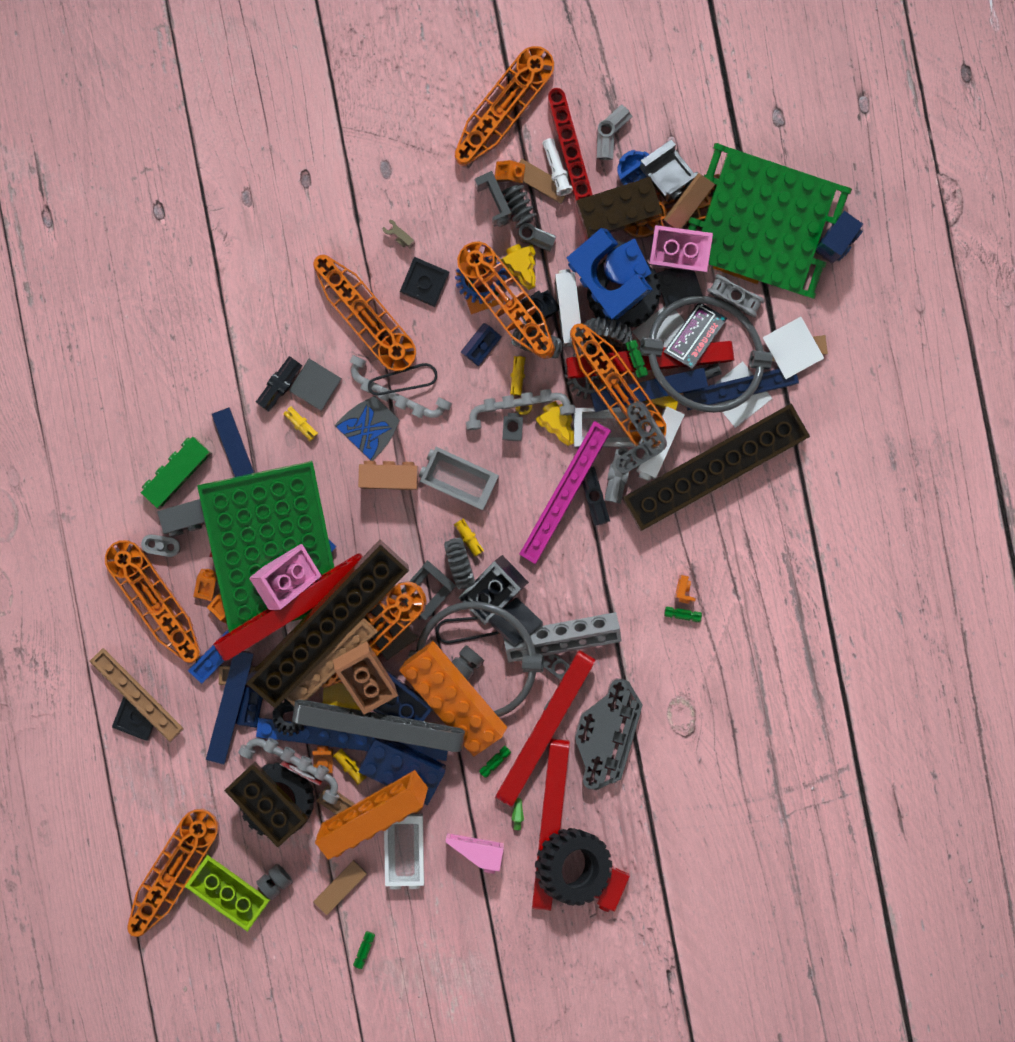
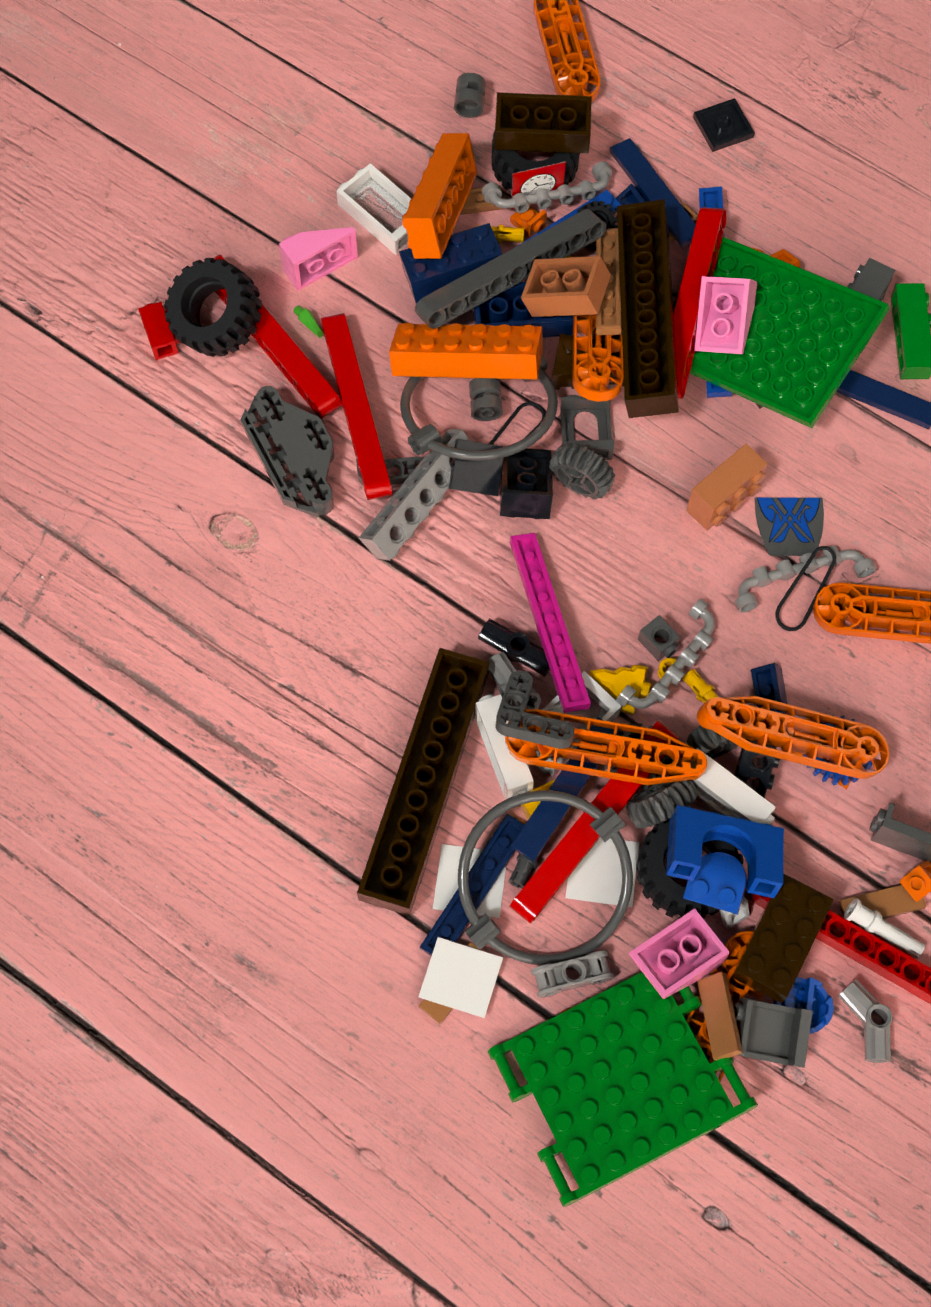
camera: 135 degrees right, 20 degrees down
(136, 695) = (742, 135): medium nougat tile -> none
(160, 610) = (812, 216): orange beam -> none
(161, 545) = (852, 262): light grey plate -> none
(227, 893) = (501, 52): lime brick -> none
(279, 383) = (911, 484): black piece -> none
(300, 423) = (853, 469): yellow pin -> none
(315, 384) = (878, 515): dark grey tile -> none
(340, 887) = (408, 140): medium nougat tile -> none
(364, 950) = (337, 111): green axle -> none
(424, 282) = (885, 699): black tile -> none
(458, 478) = (661, 549): clear piece -> none
(468, 537) = (596, 507): yellow pin -> none
(495, 761) = (373, 345): green axle -> none
(518, 205) = (879, 855): dark grey piece -> none
(521, 264) = (814, 800): yellow rock -> none
(538, 238) = (827, 842): dark grey piece -> none
(636, 359) = (610, 799): green axle -> none
(678, 285) = (637, 926): black plate -> none
(682, 587) = (342, 635): orange bracket -> none
(683, 614) = (322, 619): green axle -> none
(695, 335) = (574, 889): sticker -> none
(839, 238) = (526, 1132): dark blue brick -> none

